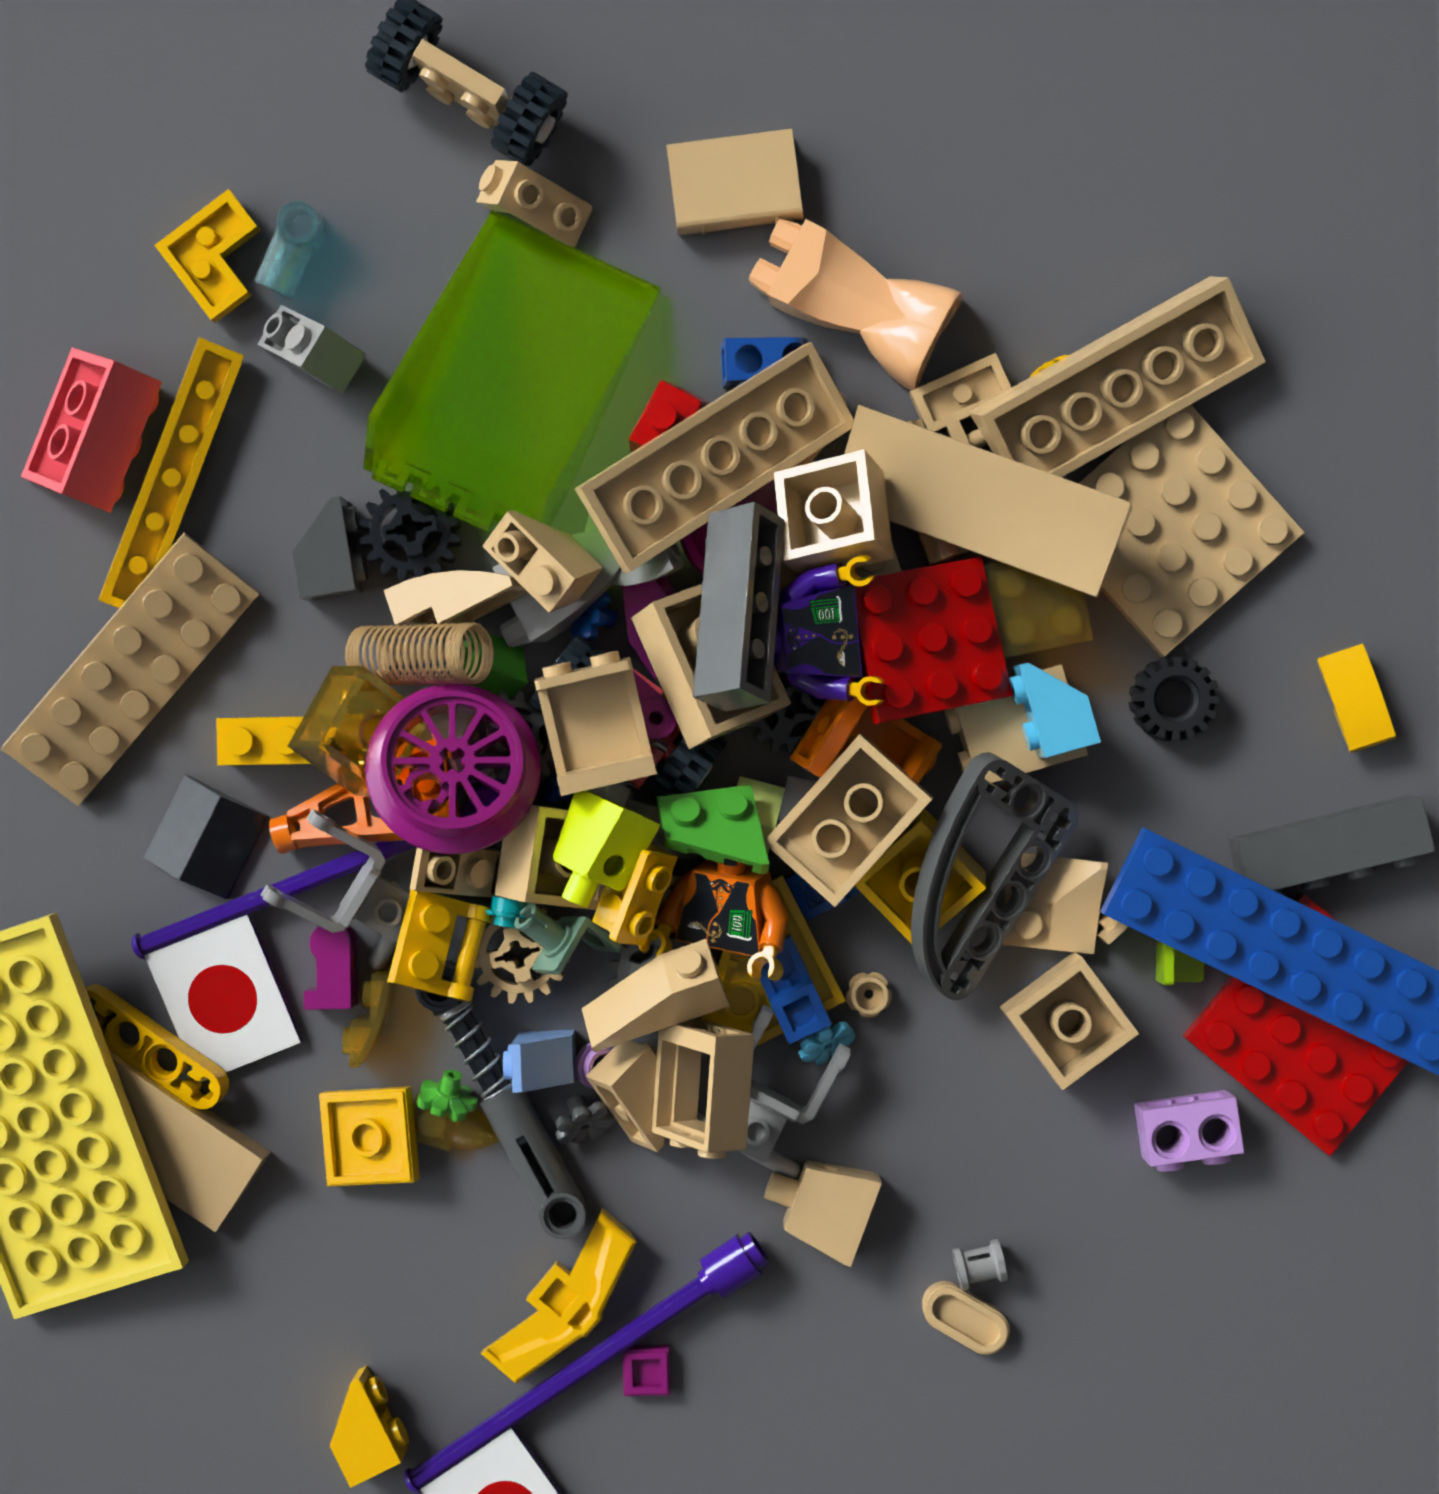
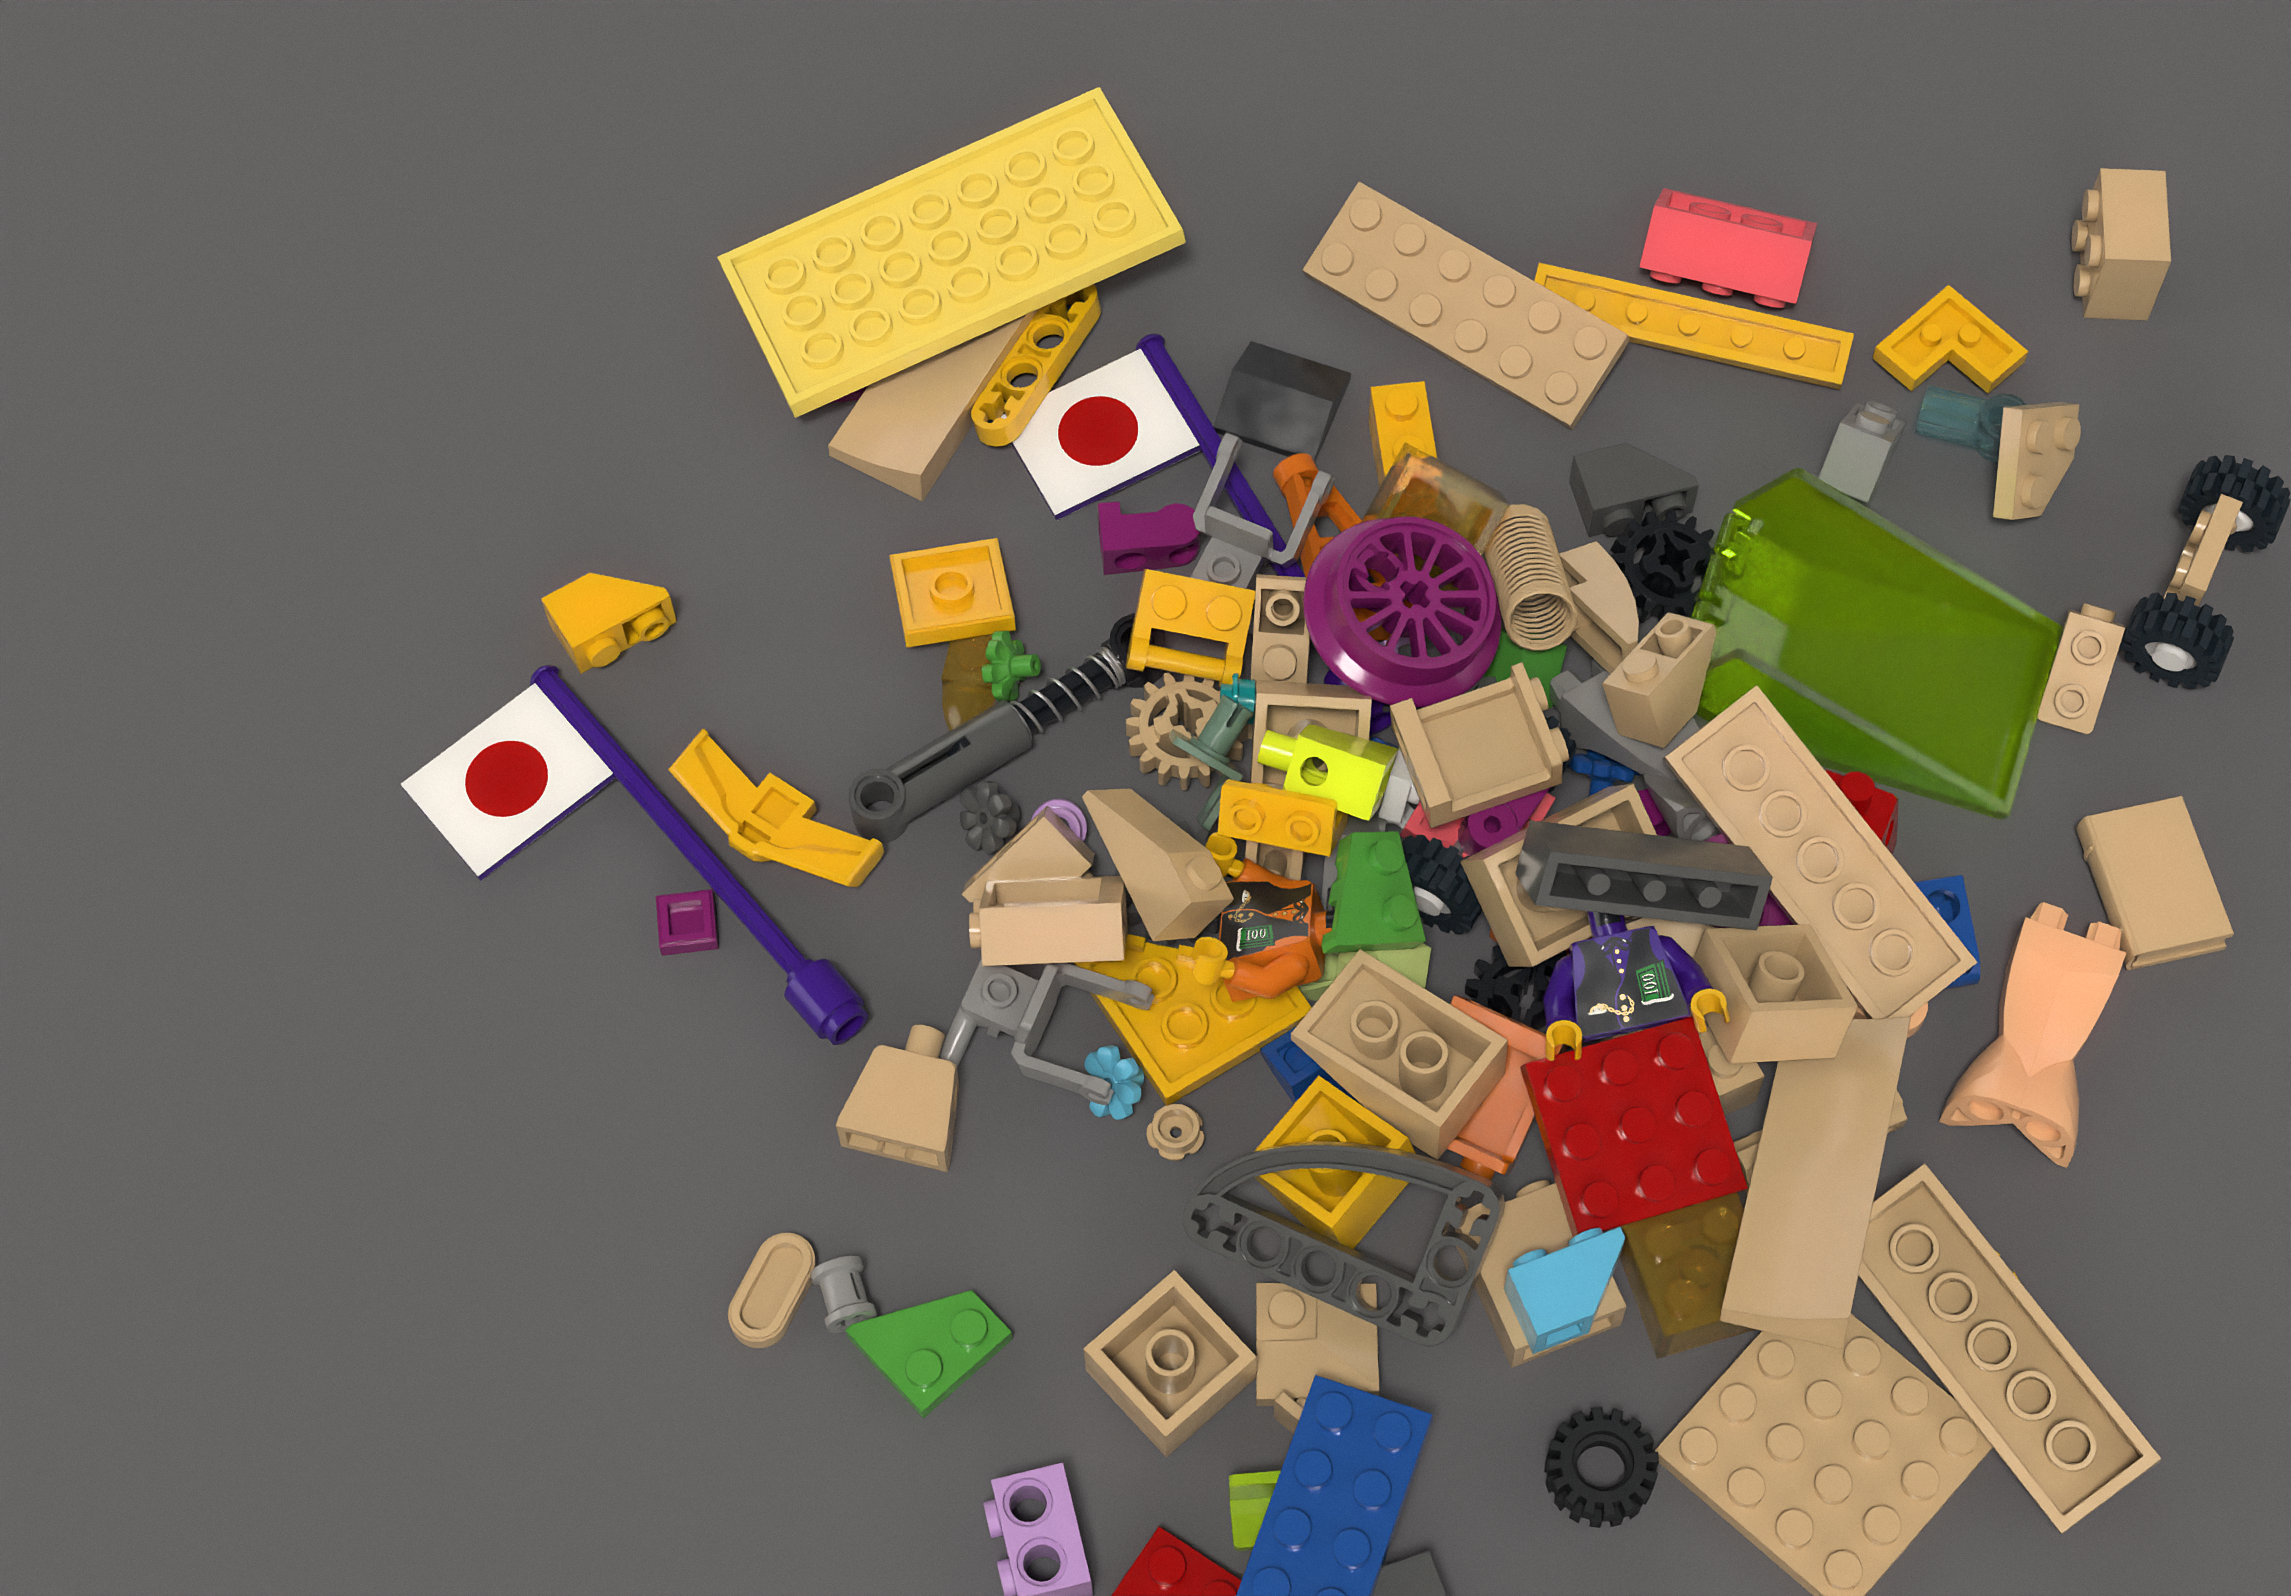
camera: 85 degrees right, 25 degrees down
(134, 85) = (2122, 244): none -> tan brick
(337, 205) = (2034, 456): none -> tan plate
(365, 1030) = (1070, 577): clear yellow slope -> none
(540, 1060) = (1062, 749): light blue slope -> none
(794, 995) = (1177, 1026): blue slope -> none
(950, 398) = (1939, 1144): tan plate -> none
(1024, 1198) = (931, 1346): none -> bright green wing

